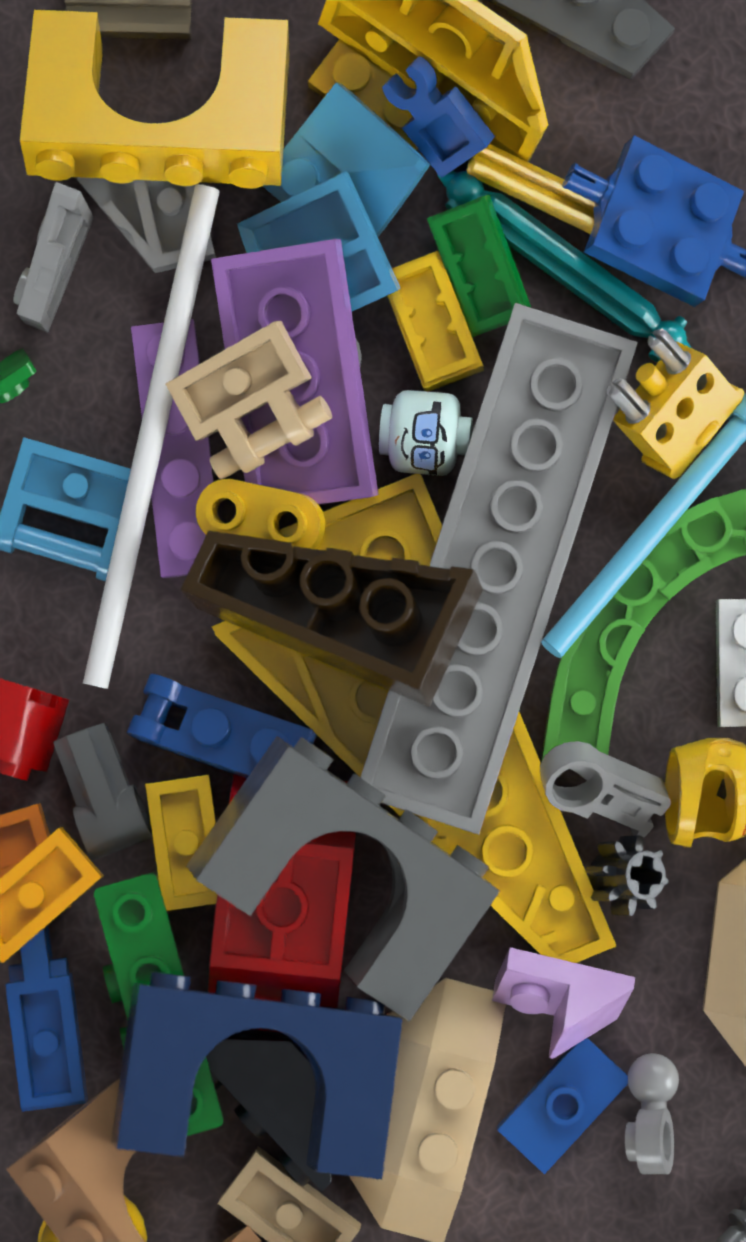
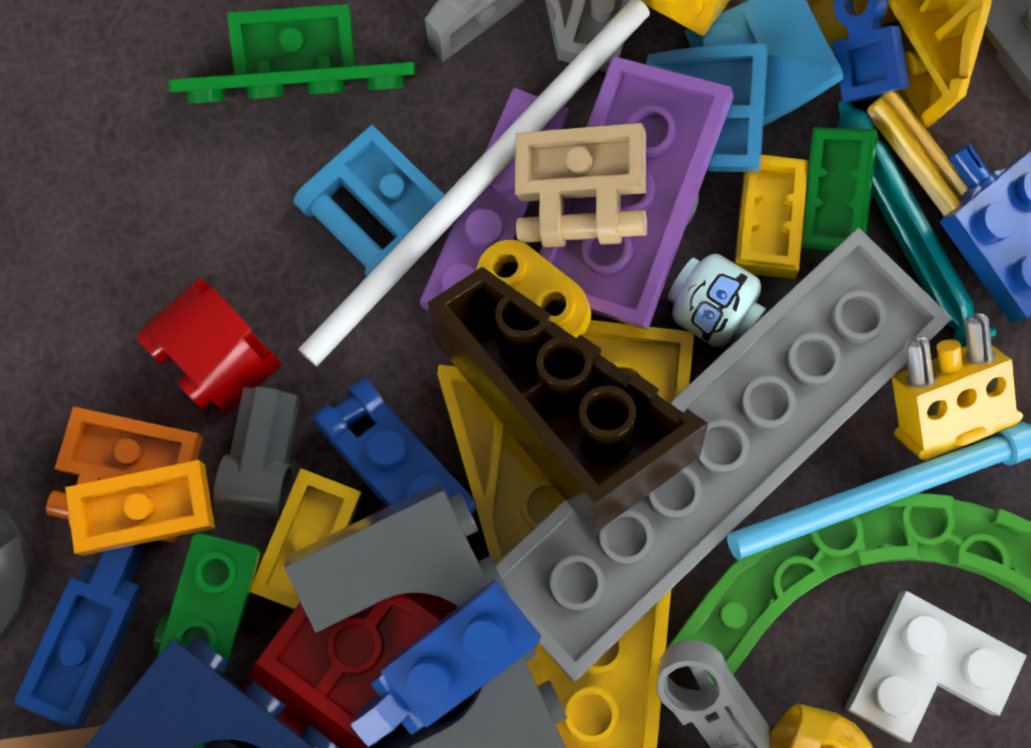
camera: 25 degrees right, 10 degrees down
(369, 881) = (447, 664): none -> blue hinge

